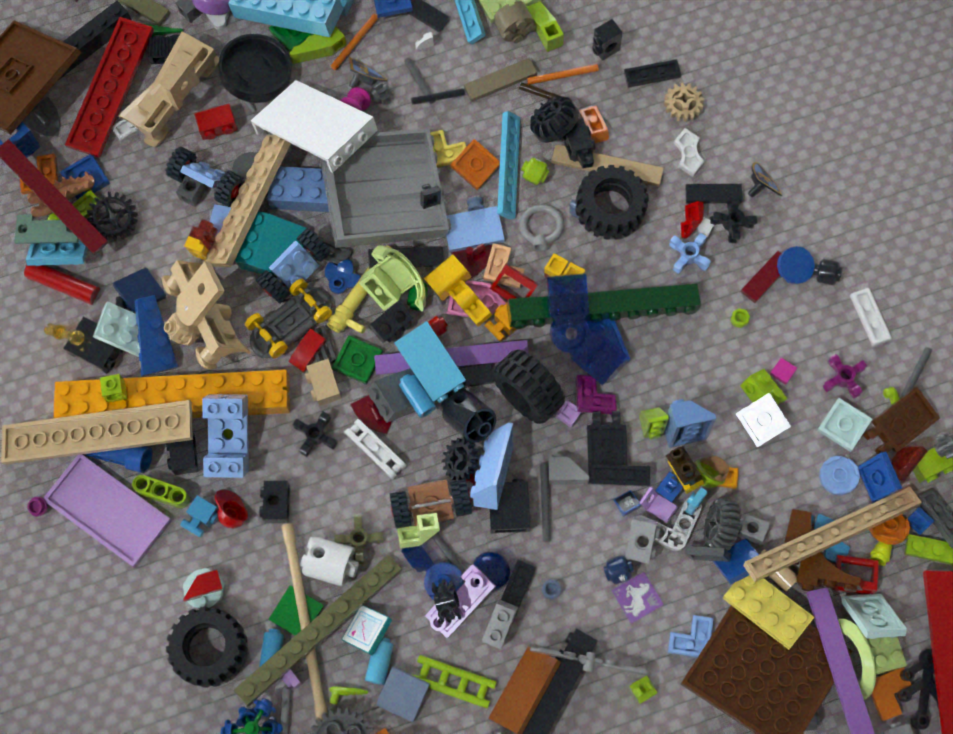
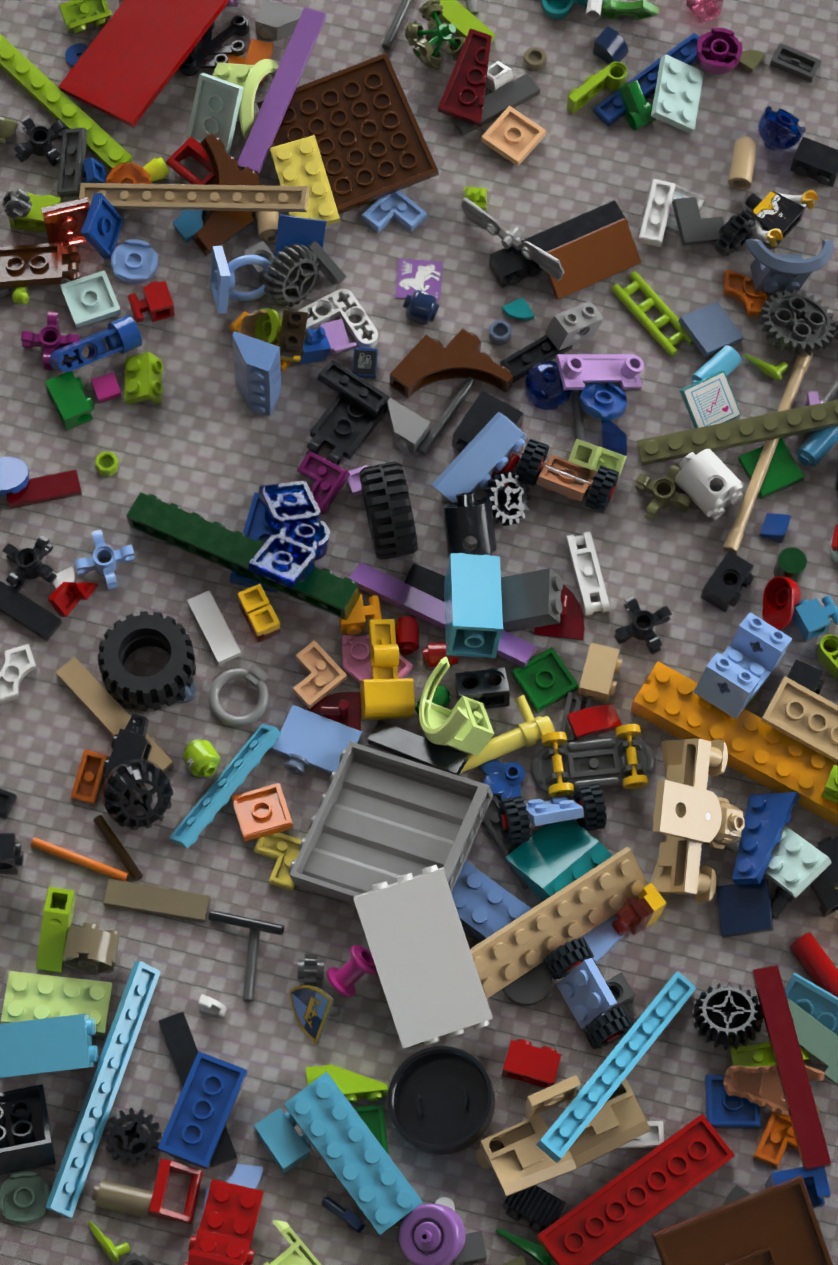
camera: 155 degrees left, 5 degrees down
(156, 133) = (616, 1067): none -> medium azure plate
(239, 541) = (790, 564): none -> dark green piece
(267, 567) = (775, 526): none -> blue slope
(352, 44) = (294, 1067): orange bar -> none
(417, 395) = (512, 575): dark azure brick -> none
(430, 196) = (347, 784): black tile -> none
(446, 601) = (615, 366): black pin -> none
(464, 328) = (407, 635): none -> red brick
(516, 275) = (313, 644): red tile -> none
(550, 617) = (518, 310): none -> teal tile
(564, 547) = (459, 359): none -> reddish brown arch
(589, 258) = (214, 627): none -> white tile
(636, 550) = (378, 314): light grey brick -> none
(653, 422) = (282, 407): lime slope -> none
(695, 501) = (303, 302): medium azure plate -> none
(763, 419) = (168, 348): tile -> none
(764, 489) = (223, 278): none -> light blue tile
(798, 343) = (69, 400): none -> green brick
(799, 451) = (156, 301): none -> red brick
(808, 390) = (119, 337): none -> blue beam

